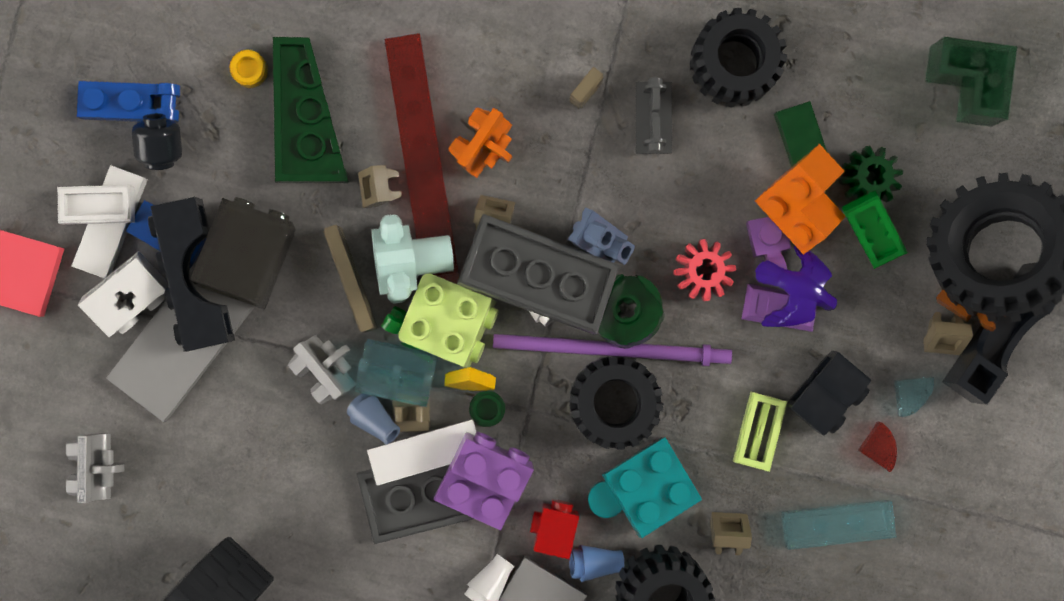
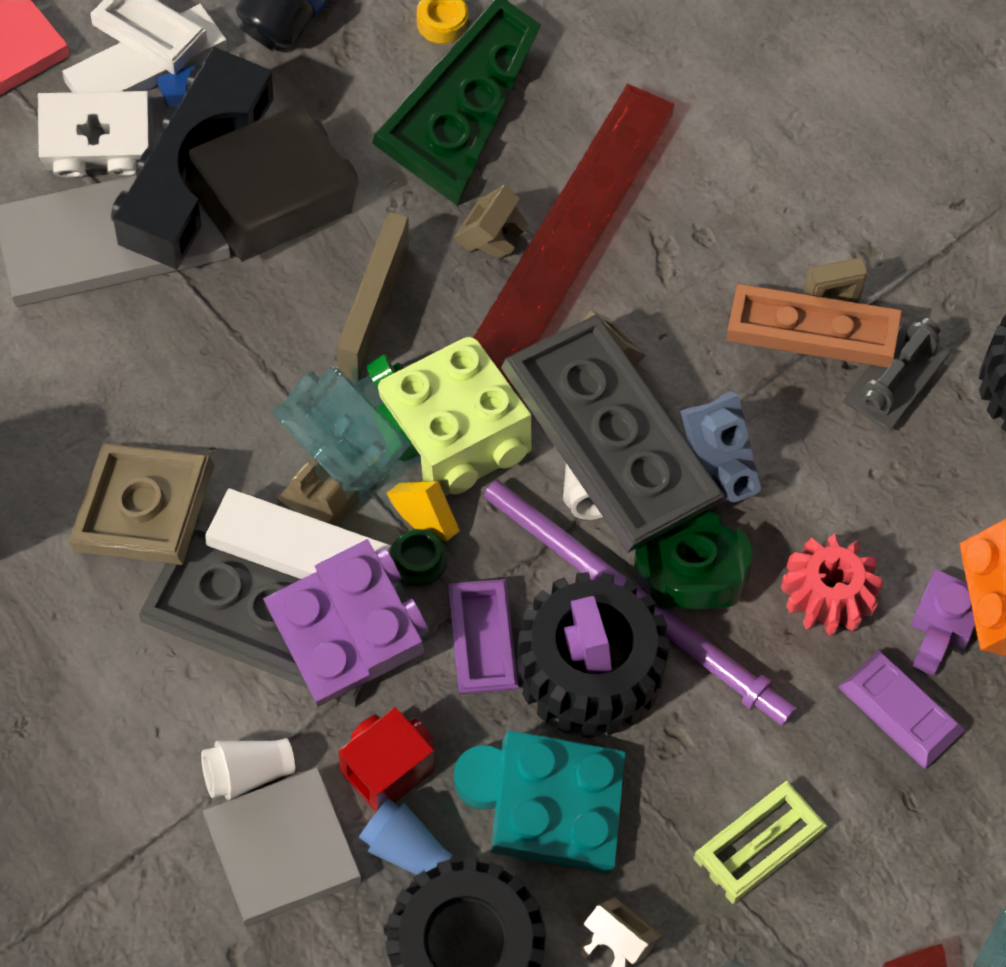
camera: 35 degrees right, 25 degrees down
(326, 365) = (265, 366): light grey hips -> none
(327, 486) = (142, 504): none -> dark tan tile
(372, 417) = (266, 458): sand blue cone -> none
(402, 258) = (455, 302): light aqua piece -> none
(486, 145) = (660, 260): orange hips -> none
(551, 426) = (482, 636): none -> medium lavender tile
(592, 121) = (814, 325): none -> nougat plate
(614, 405) = (587, 638): none -> medium lavender plate
(804, 290) = (949, 690): dark purple animal -> none
(829, 393) = (893, 851): black brick -> none

